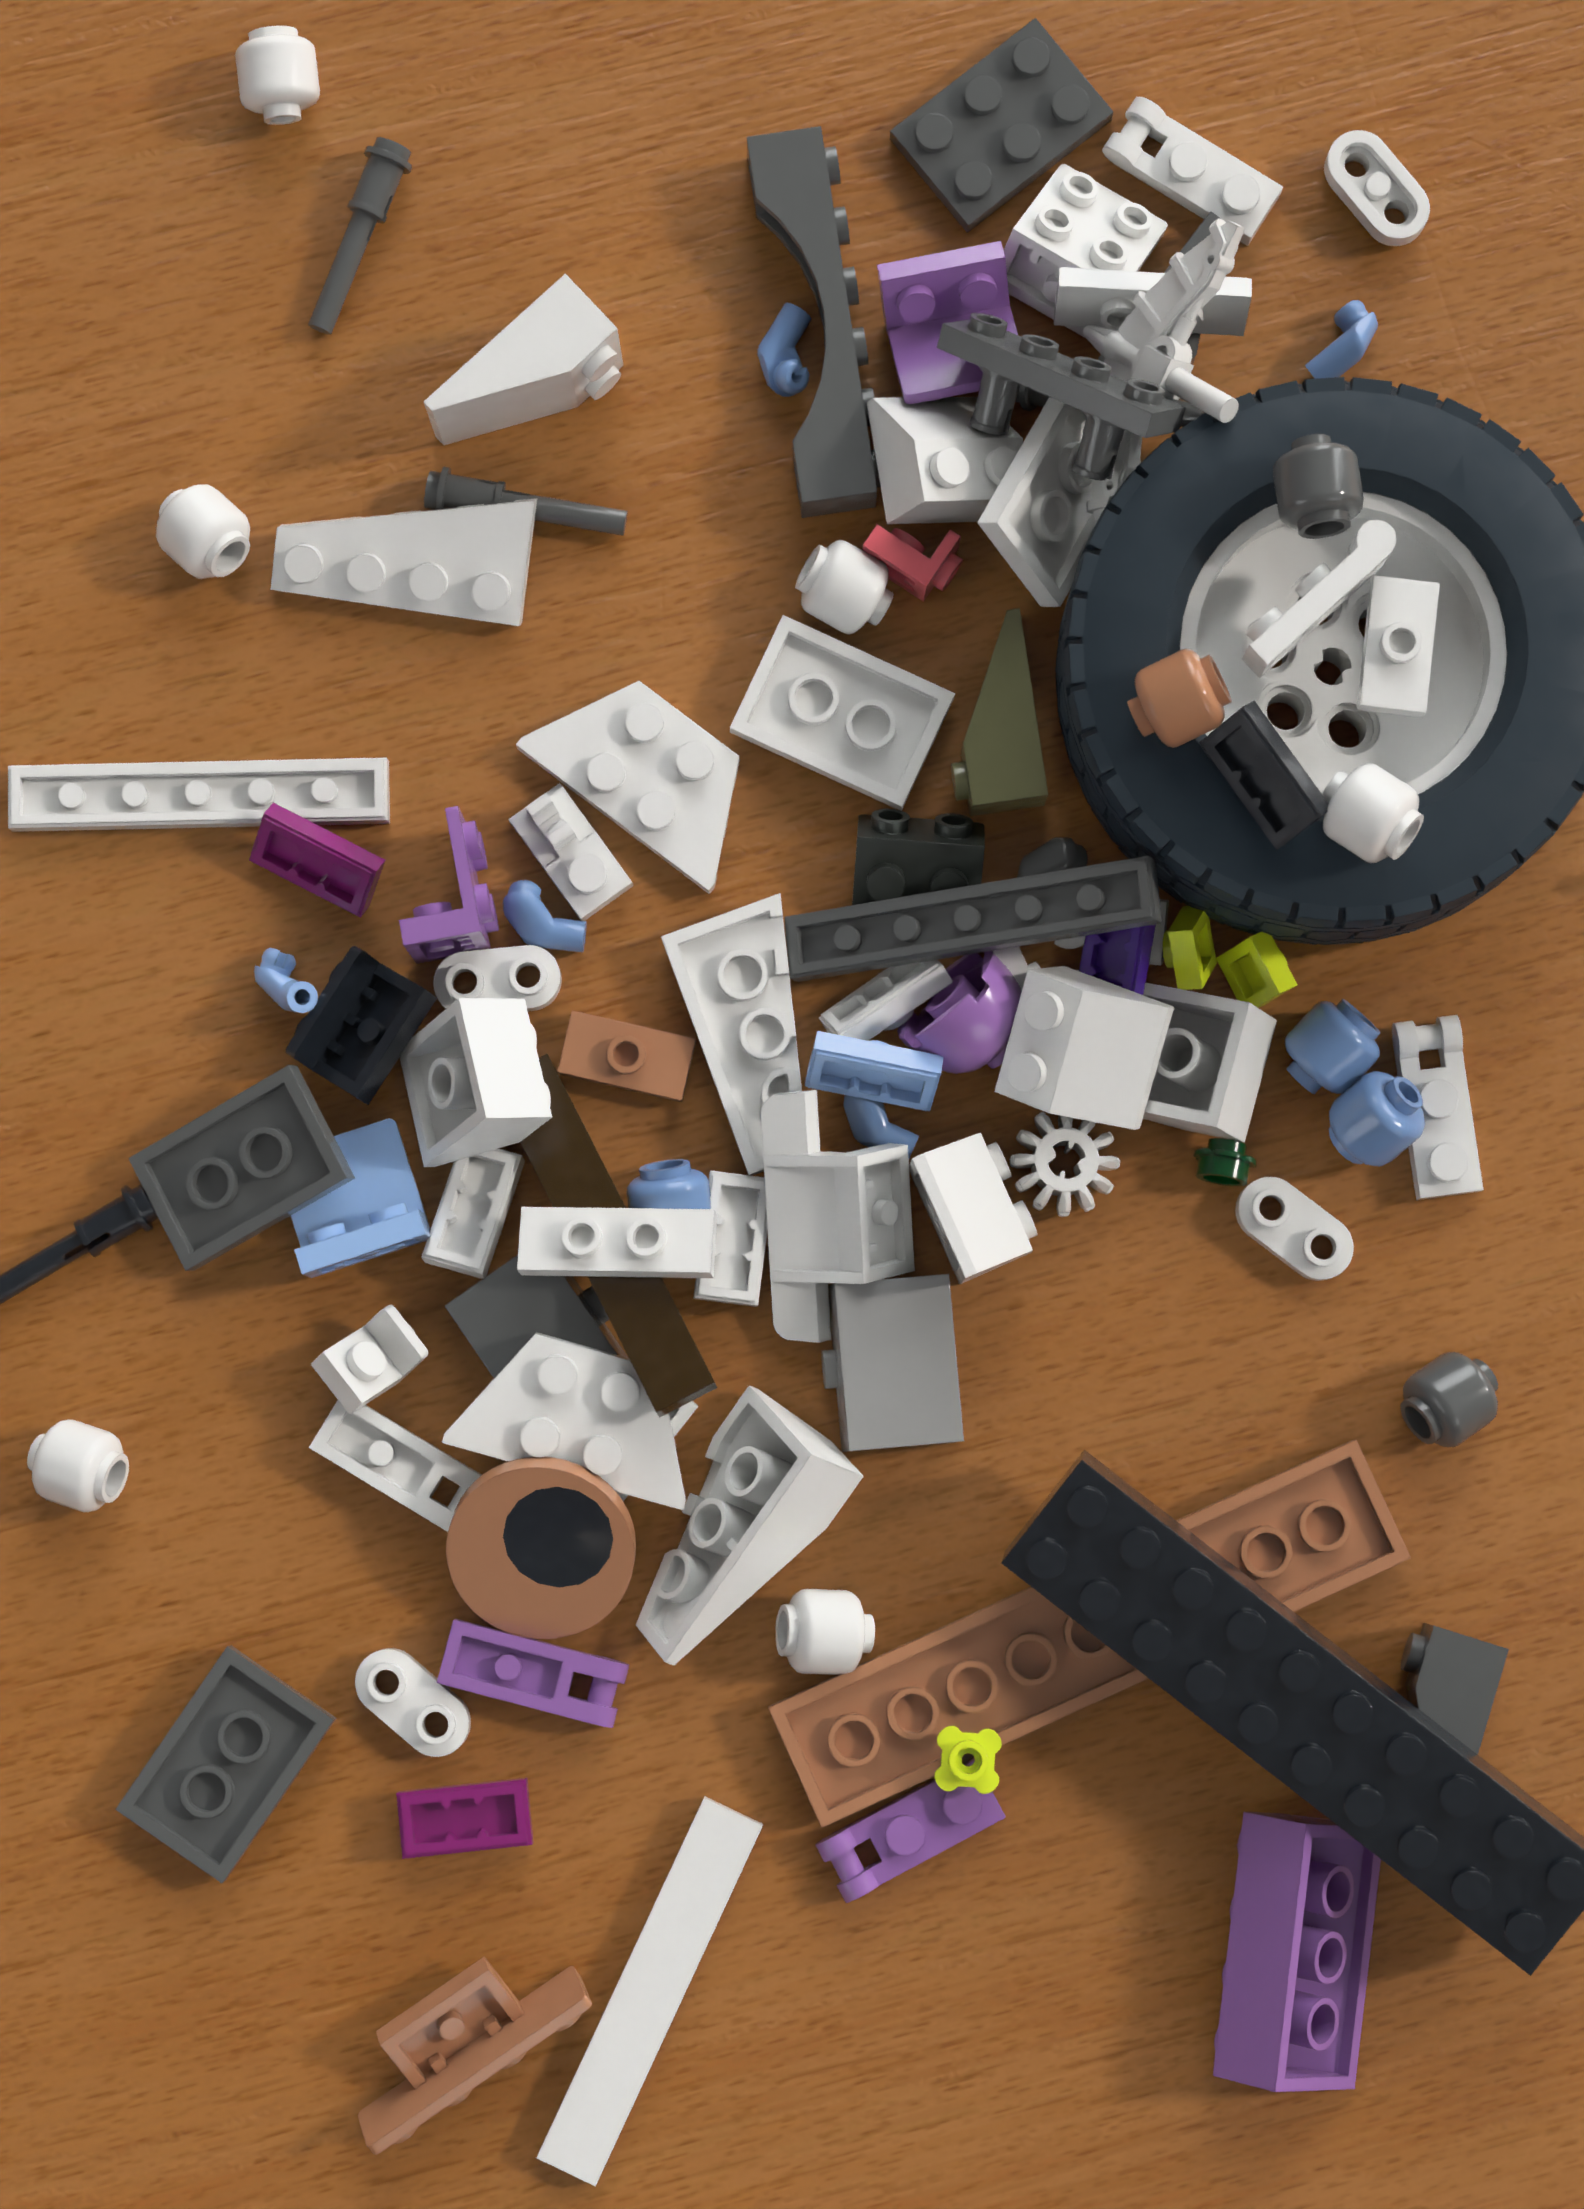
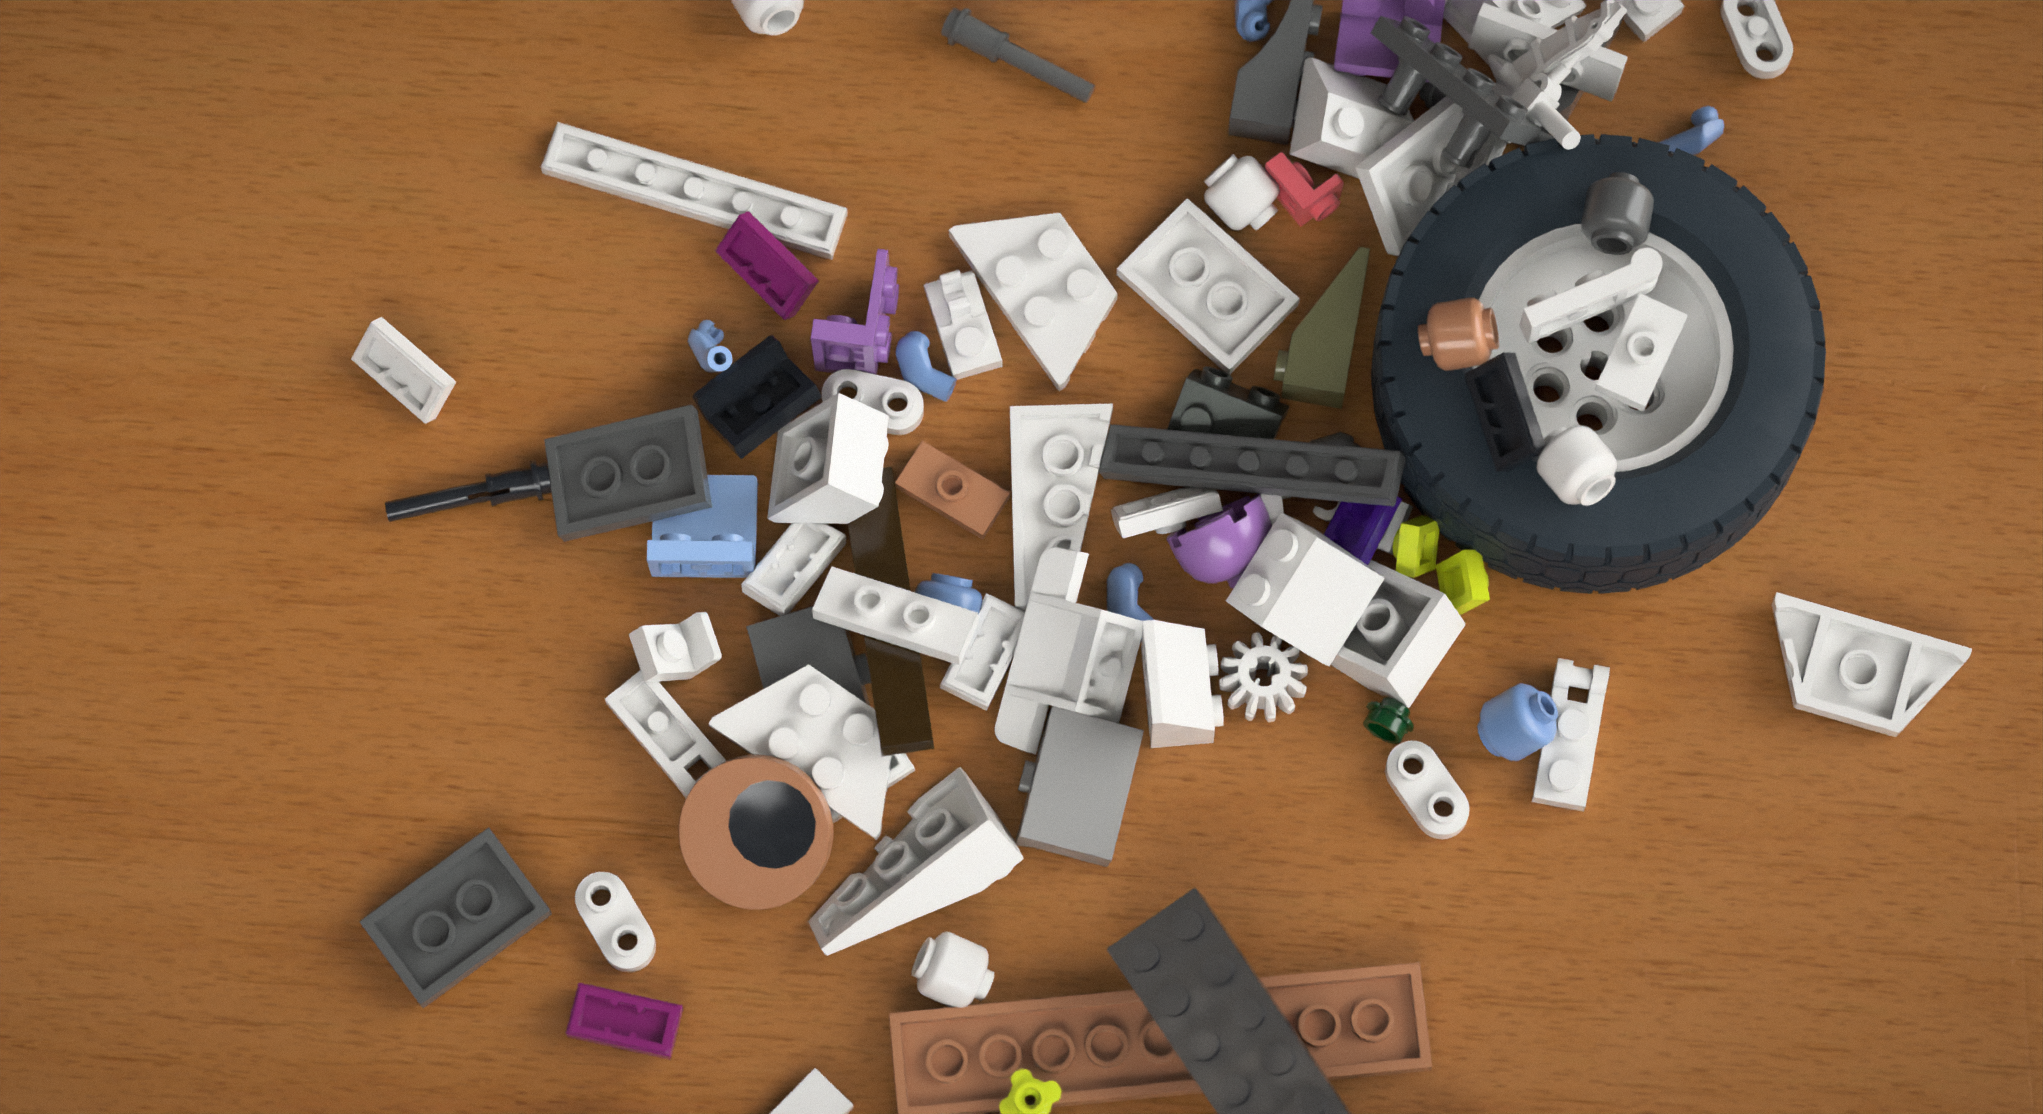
camera: 20 degrees right, 10 degrees down
(78, 1465) = (423, 655): white head -> none
(430, 561) = (929, 72): white wing -> none
(530, 1672) = (714, 927): medium lavender plate -> none
(873, 1071) = (1138, 555): light blue plate -> none
(1332, 1047) = (1502, 657): medium blue head -> none
(1449, 1399) = (1504, 956): dark grey head -> none

